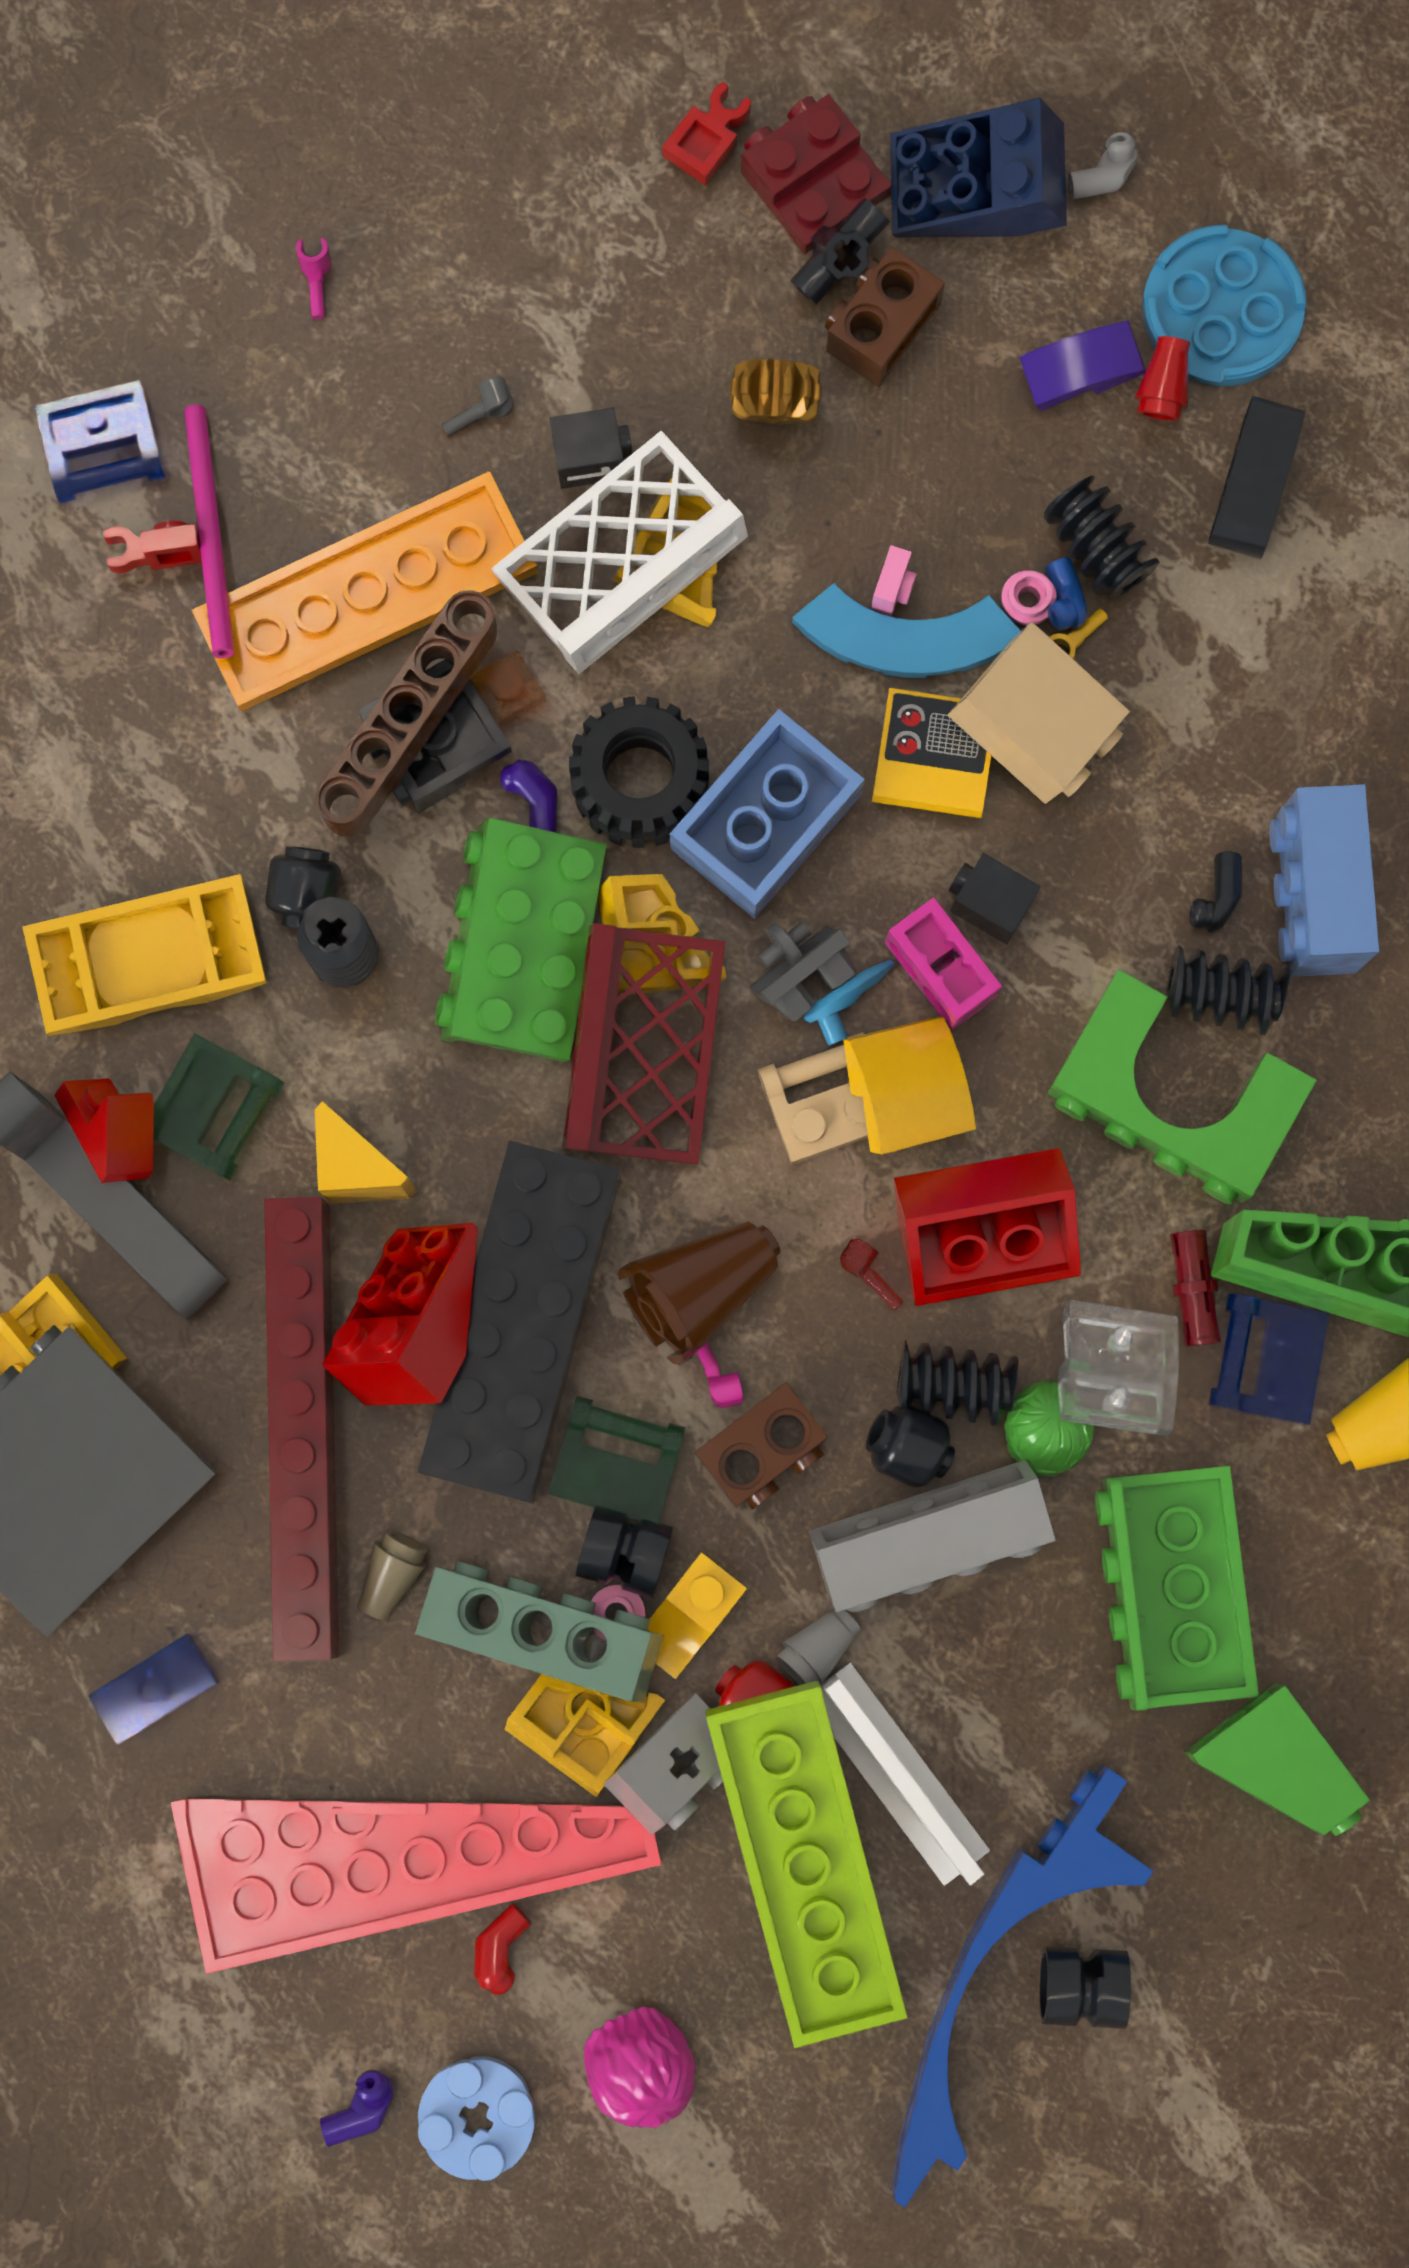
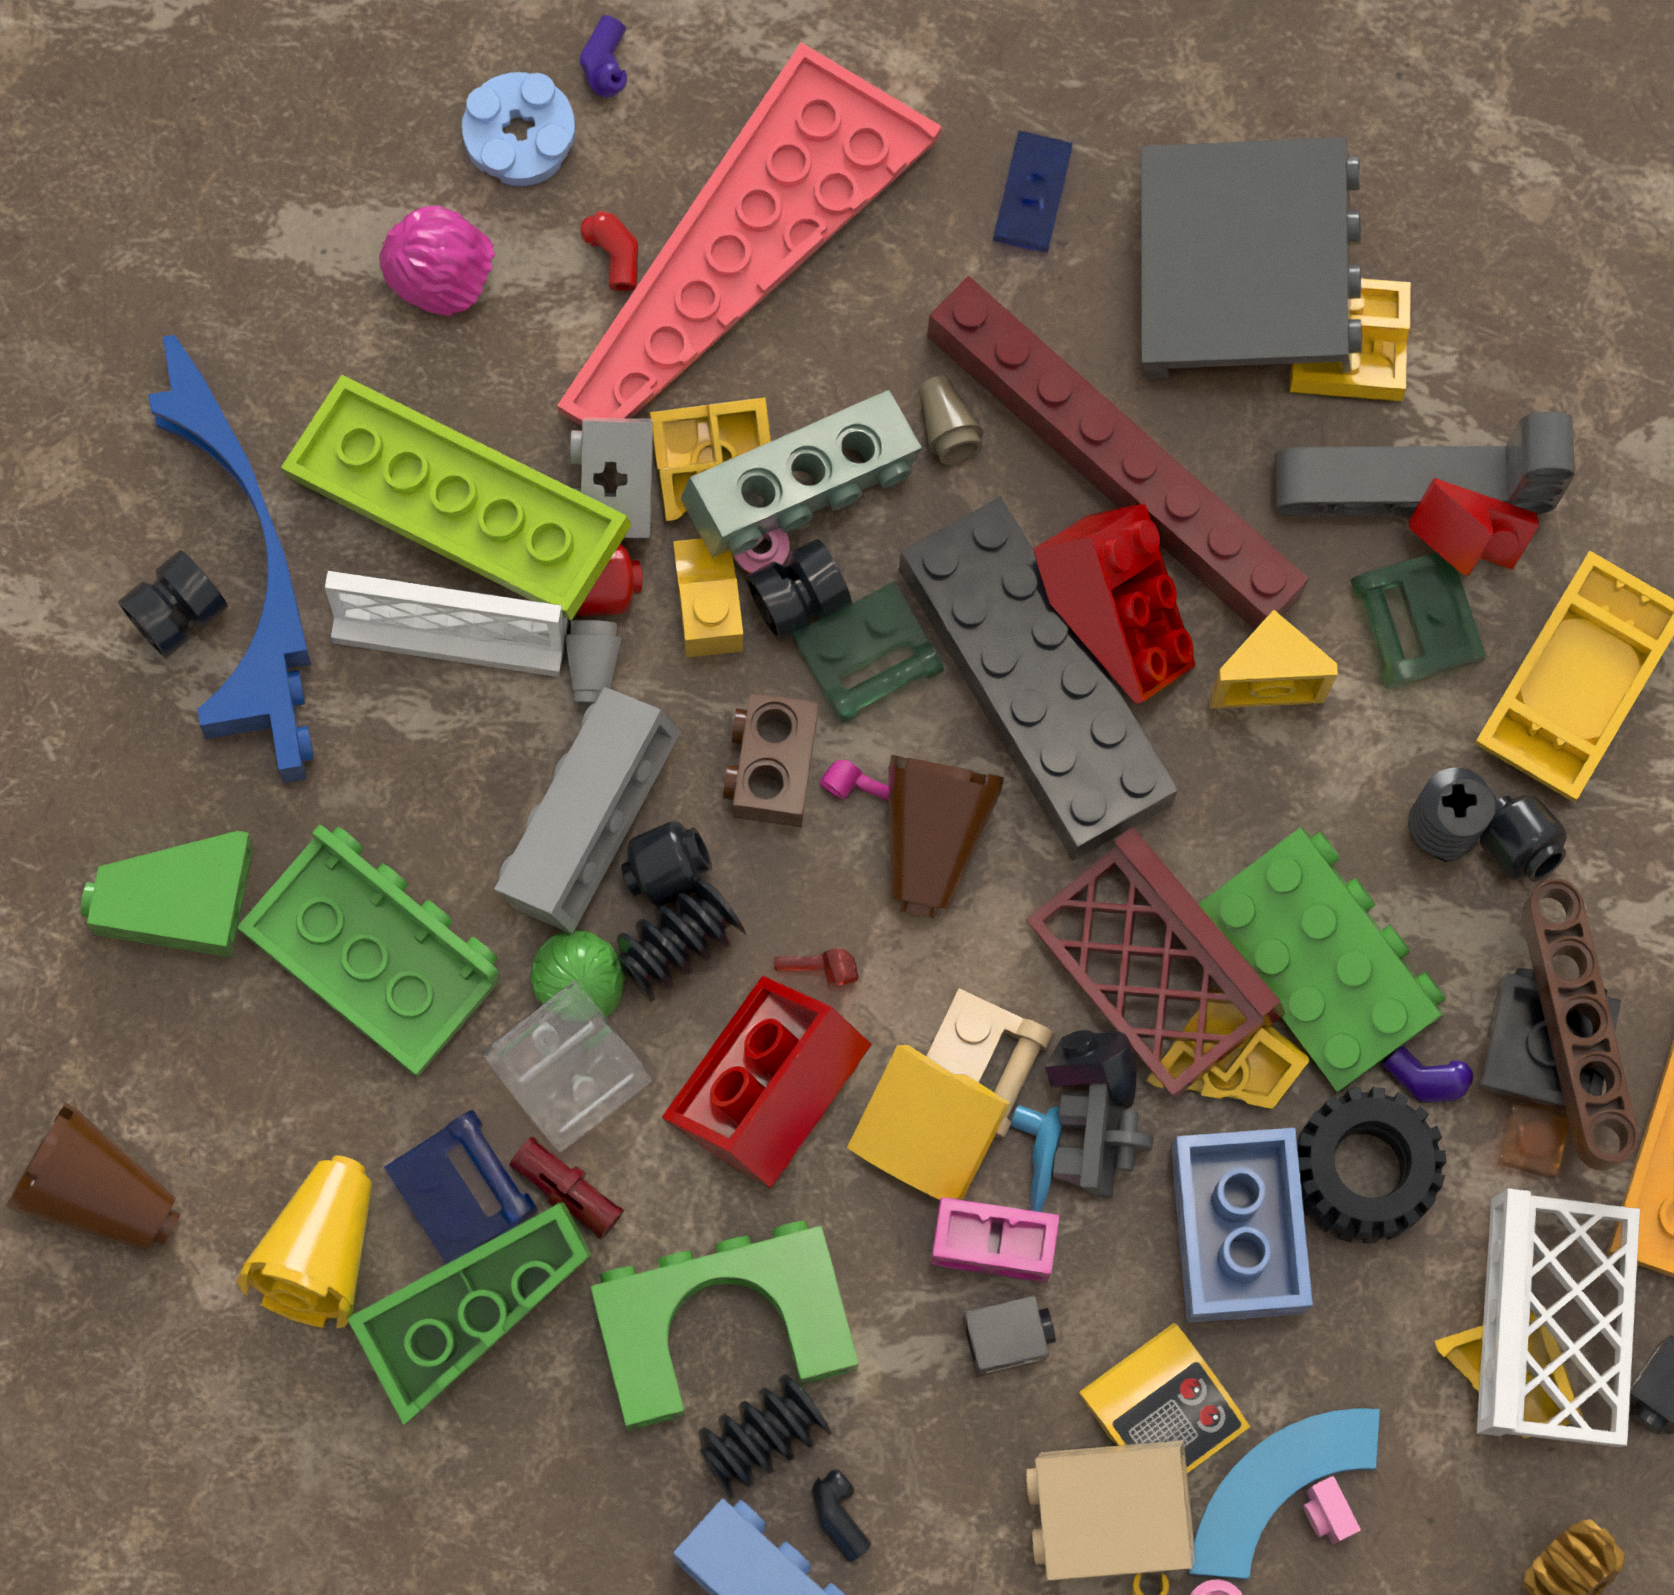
camera: 130 degrees right, 5 degrees down
(753, 1018) = (1095, 1059): none -> black plate

